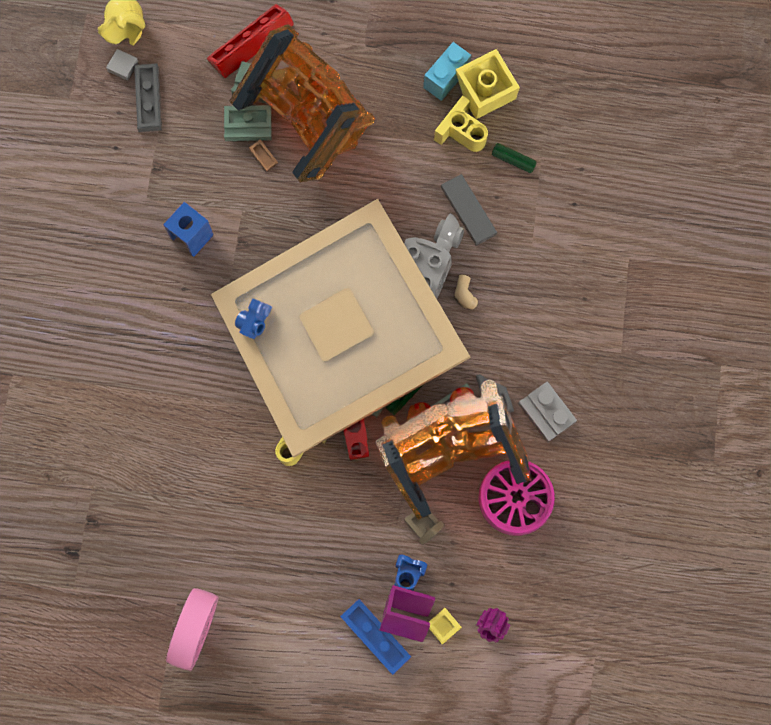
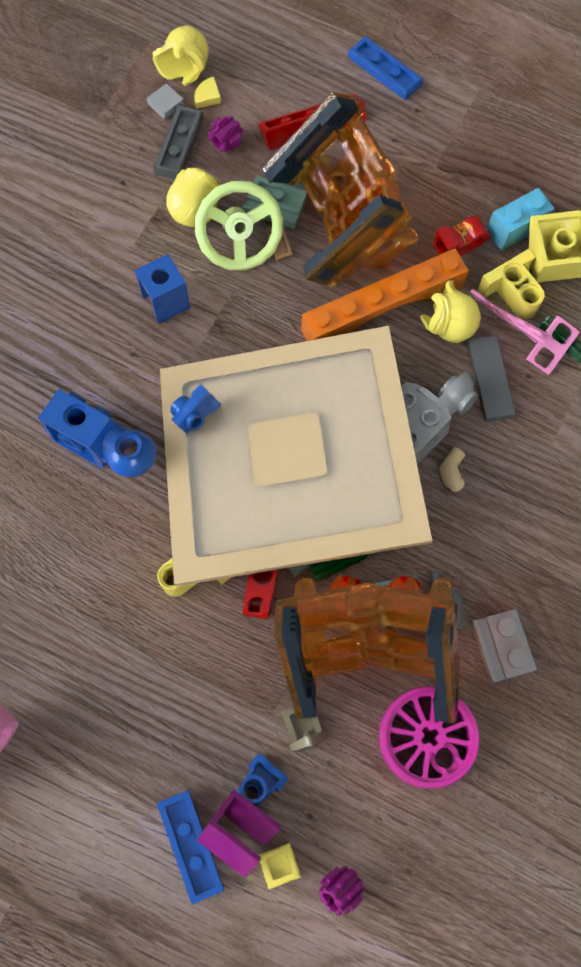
camera: 20 degrees right, 5 degrees down
(154, 46) = (207, 94): none -> light yellow tile
(182, 144) = (187, 194): none -> light yellow hair
(185, 78) = (225, 133): none -> magenta gear
(188, 367) = (96, 436): none -> blue brick
(228, 155) = (234, 215): none -> yellowish green piece
(346, 192) = (367, 303): none -> orange arch
(406, 103) = (462, 237): none -> red leg
(424, 169) = (455, 315): none -> light yellow hair
(492, 163) = (542, 338): none -> bright pink piece

